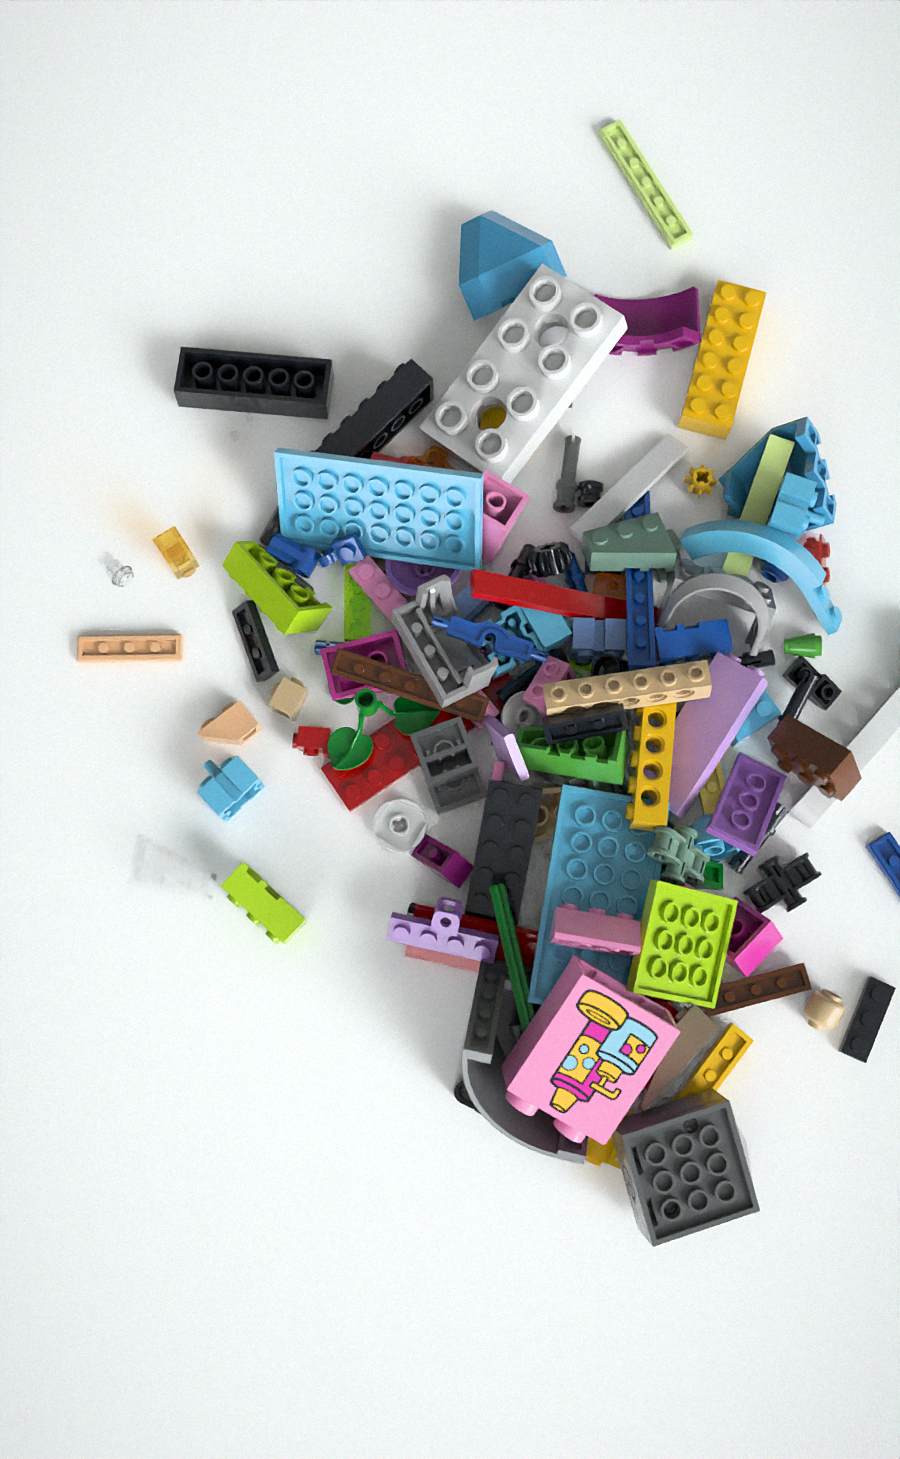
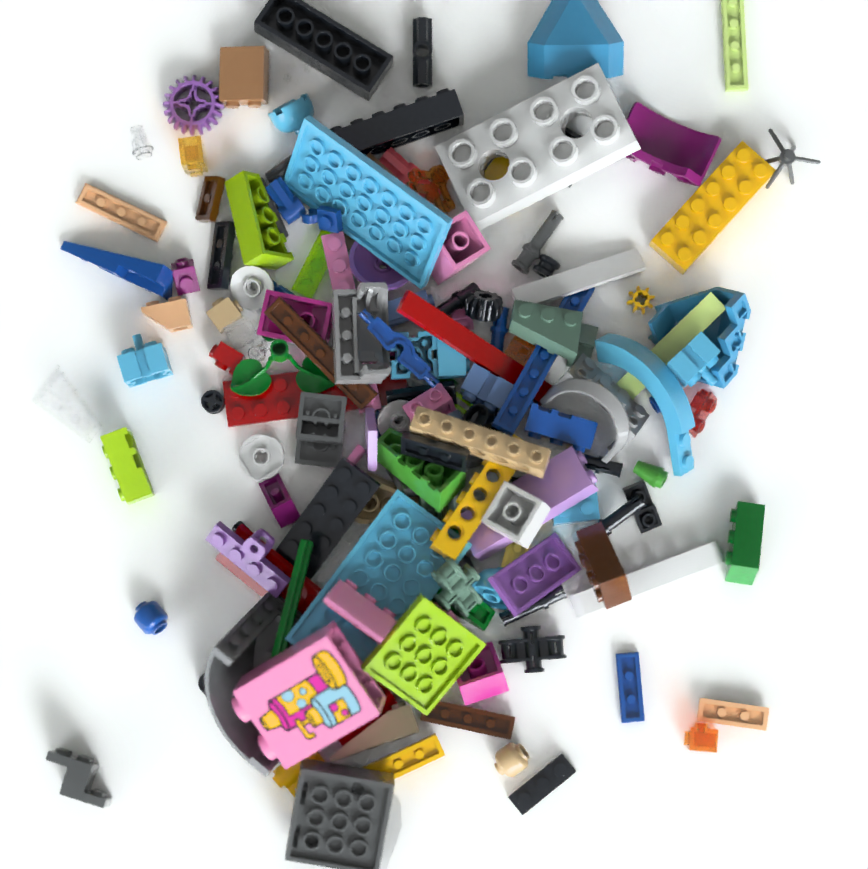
camera: 30 degrees right, 5 degrees up
(130, 514) = (183, 104): none -> medium lavender gear
(181, 696) = (143, 273): none -> blue wedge
(189, 452) = (244, 76): none -> medium nougat brick
(215, 590) = (210, 199): none -> reddish brown plate
(228, 680) = (185, 276): none -> magenta bracket
(258, 467) = (291, 114): none -> medium azure cylinder
(293, 664) = (242, 288): none -> white dish
(319, 707) = (244, 333): none -> clear brick
(320, 788) = (210, 399): none -> black wheel
(363, 359) = (422, 65): none -> black piece
(368, 1053) = (150, 617): none -> blue head
(379, 1270) = (79, 777): none -> dark grey bracket
(702, 747) = (516, 514): none -> white brick
(770, 276) = (786, 159): none -> plant

